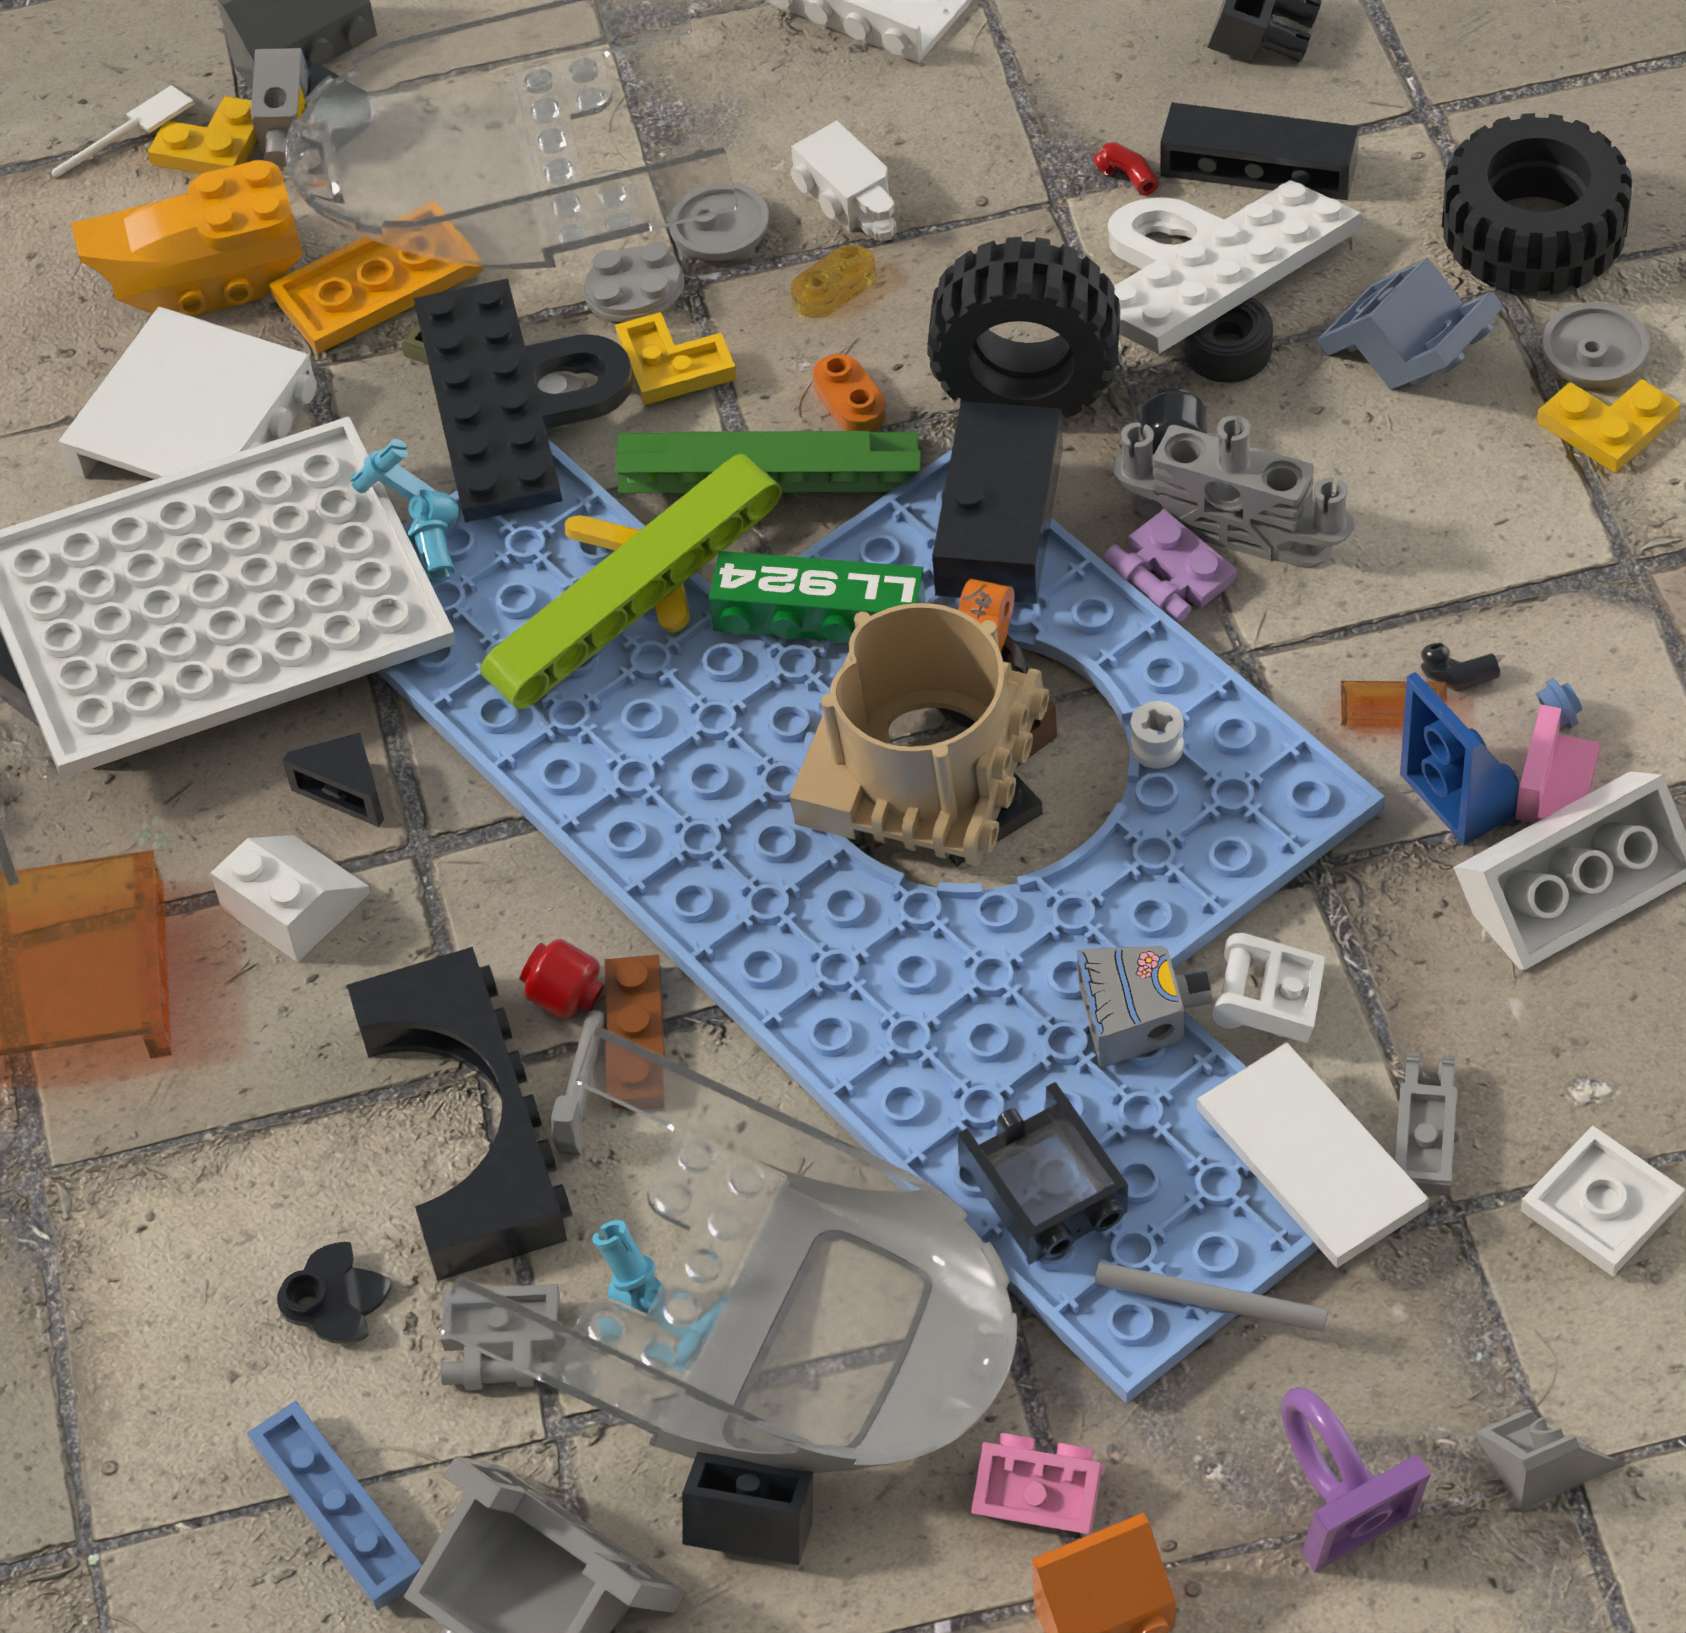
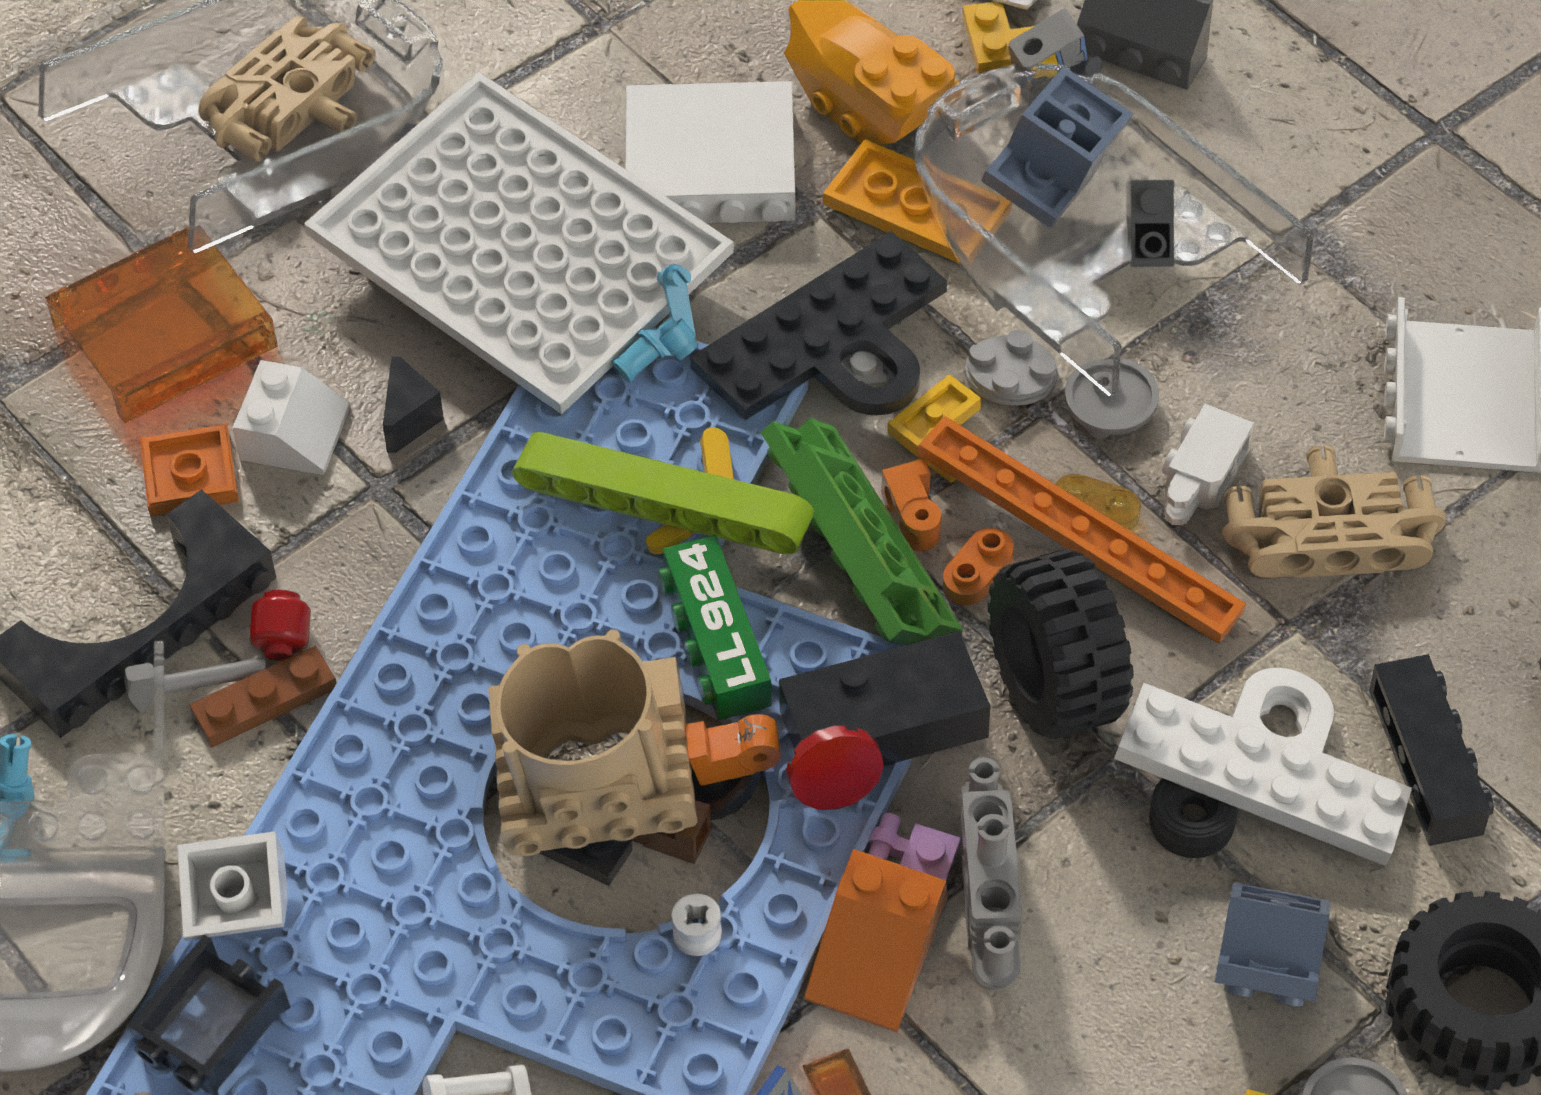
camera: 60 degrees right, 0 degrees up
(284, 1009) = (186, 462): none -> orange tile
(423, 122) = (1056, 147): none -> sand blue bracket
(552, 98) = (1150, 222): none -> dark grey slope
(750, 407) = (906, 496): none -> orange leg
(840, 301) = (1082, 529): none -> orange plate
(908, 1096) = (232, 885): none -> white slope
(972, 119) = (1333, 522): none -> tan piece
(1056, 552) = (834, 768): none -> red tile
(1131, 162) = (1361, 657): red arm -> none
(1135, 1000) = (408, 1015): light grey torso -> none
(1173, 408) = (1058, 809): black head -> none
(1246, 604) = (876, 940): none -> orange slope

